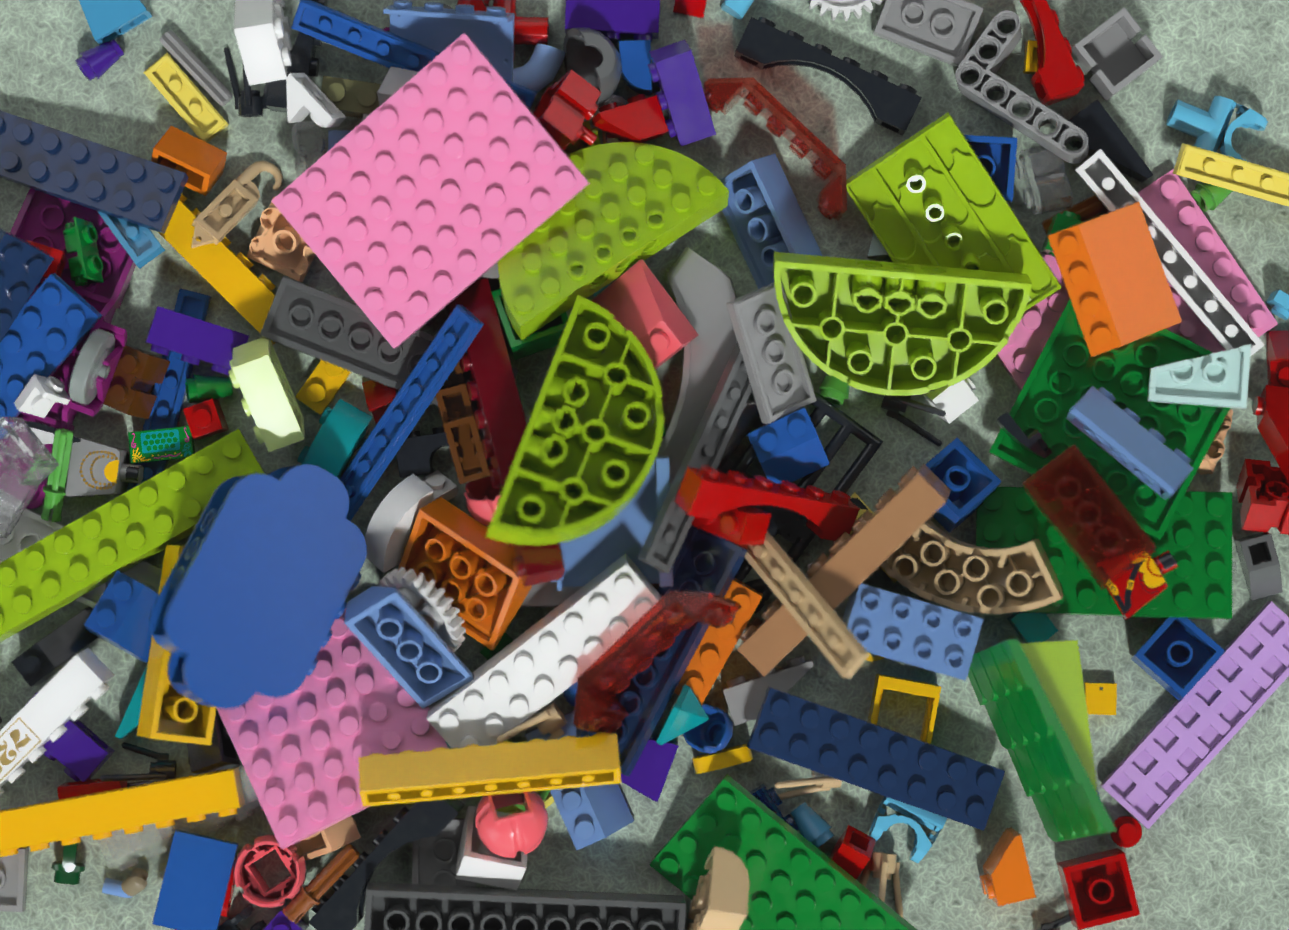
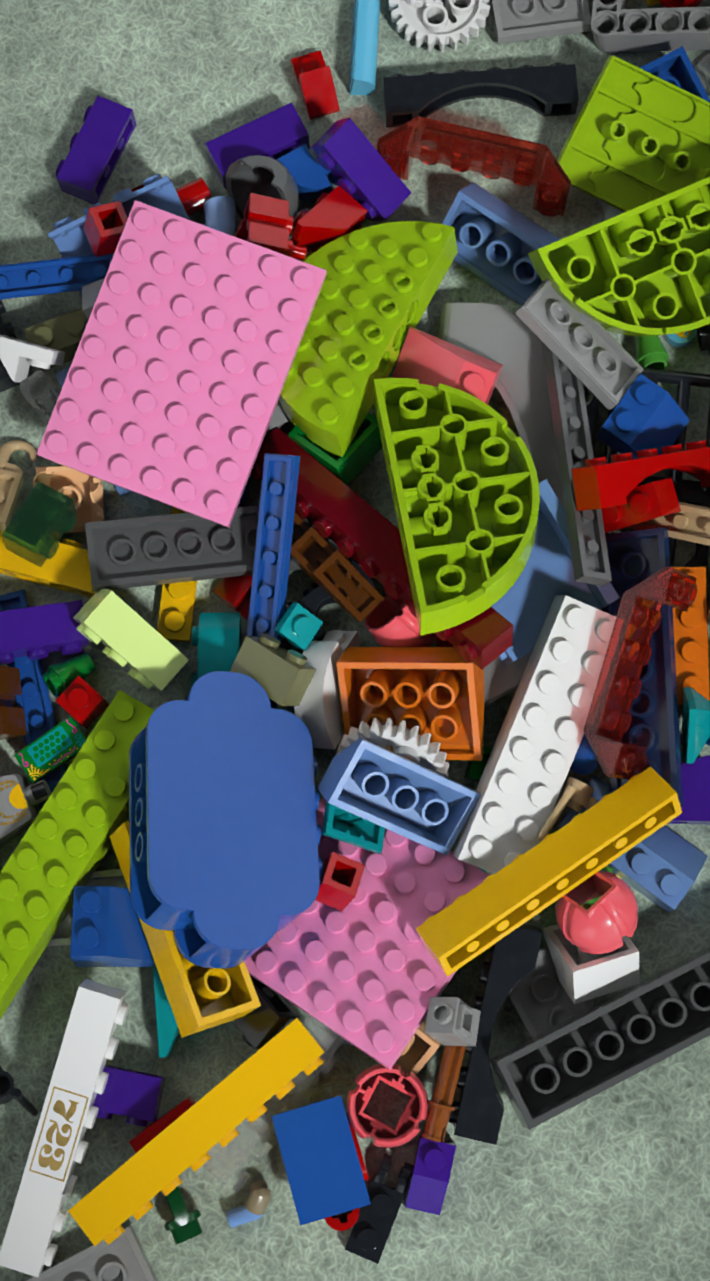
camera: 30 degrees left, 10 degrees down
(55, 649) = (53, 1005): black slope -> none
(161, 770) = (223, 1066): black plant -> none
(247, 256) = (40, 524): none -> clear green brick
(323, 684) = (339, 881): none -> red brick
(351, 840) = (452, 1022): none -> light grey window
(354, 649) = (352, 829): none -> teal slope
(367, 484) = (278, 671): none -> olive brick
(409, 459) = (298, 626): none -> teal plate
(434, 33) = (104, 227): none -> red brick

